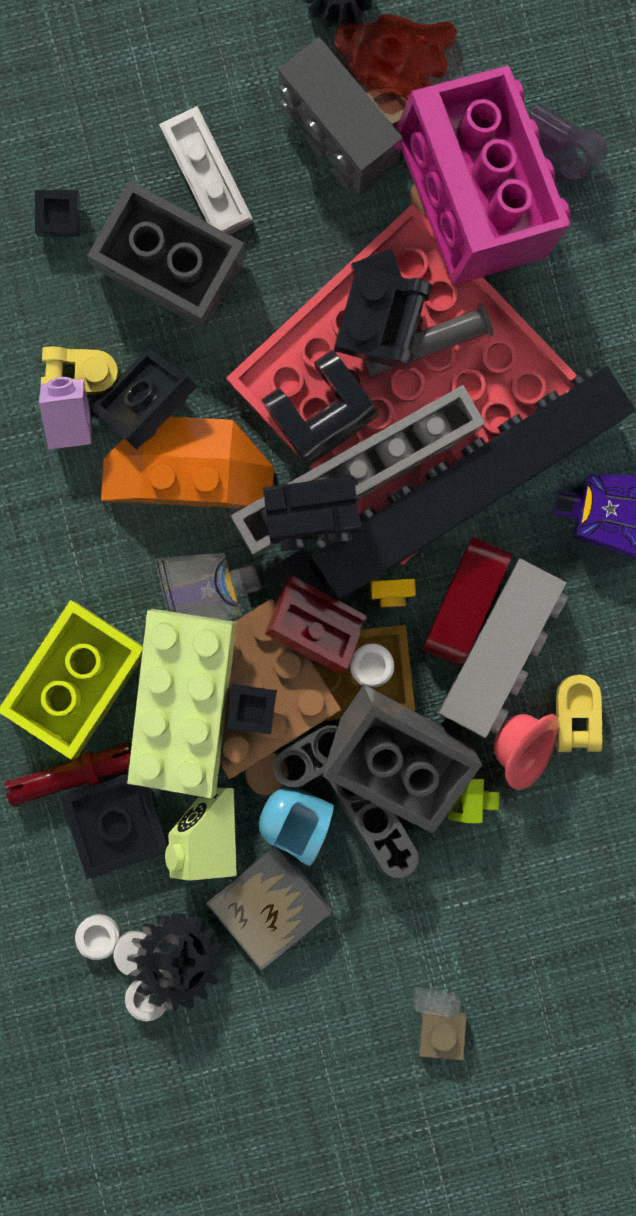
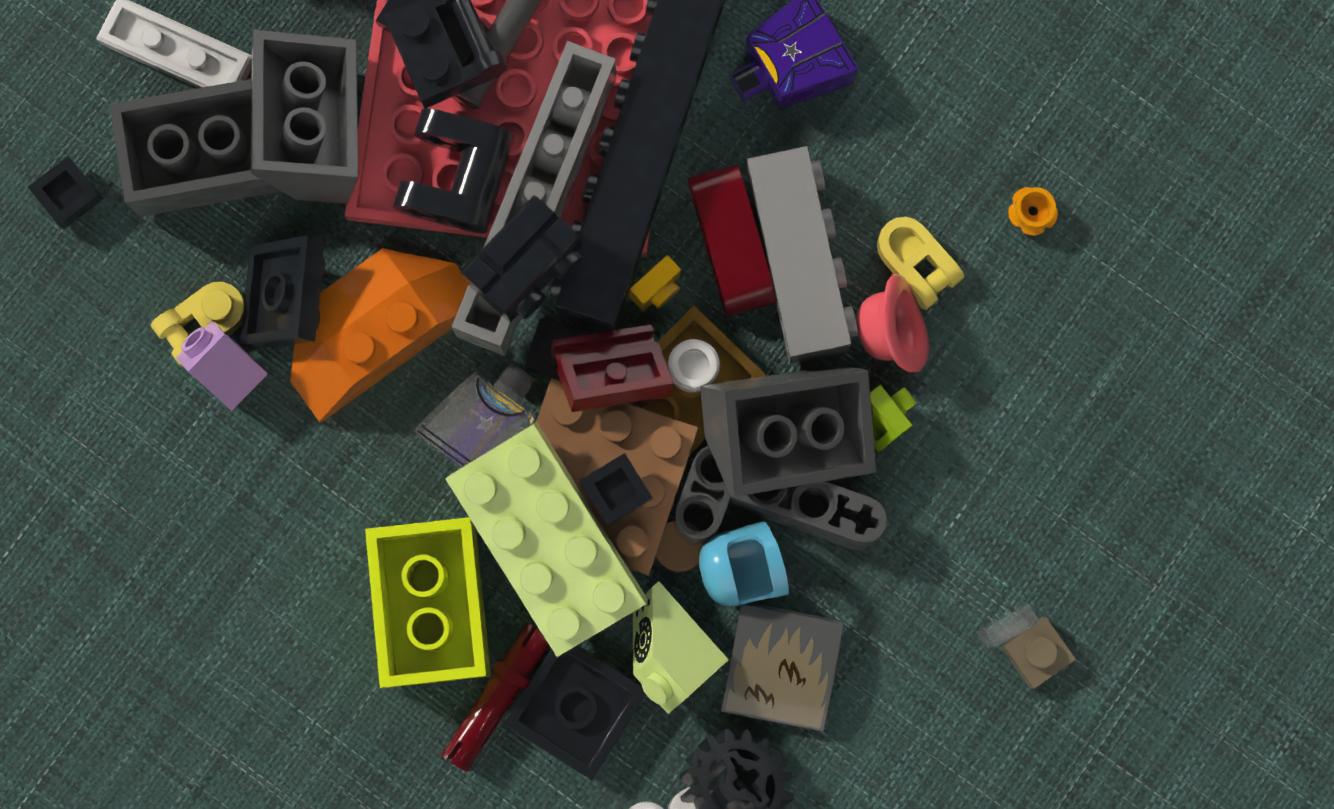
camera: 35 degrees left, 5 degrees down
(252, 291) = (305, 115): none -> dark grey slope

